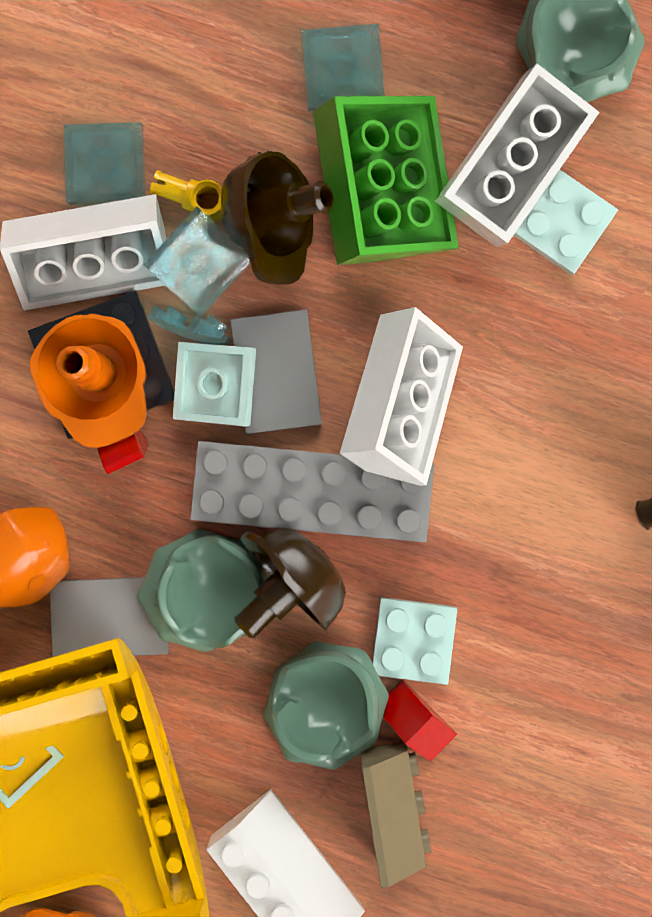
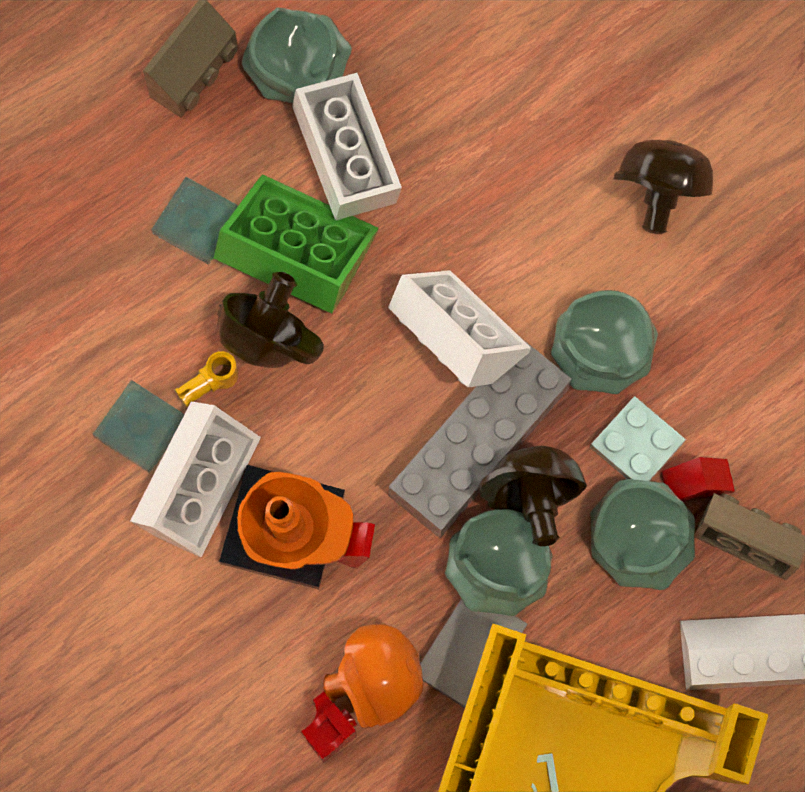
camera: 55 degrees left, 15 degrees down
(198, 261) = (261, 404): clear light blue plate -> none
(199, 331) = (312, 436): clear light blue slope -> none
(214, 383) = (354, 453): light aqua plate -> none
(284, 370) = (376, 408): light grey tile -> none
(491, 545) = (604, 341): none -> sand green piece
(565, 222) = (415, 146): light aqua plate -> none

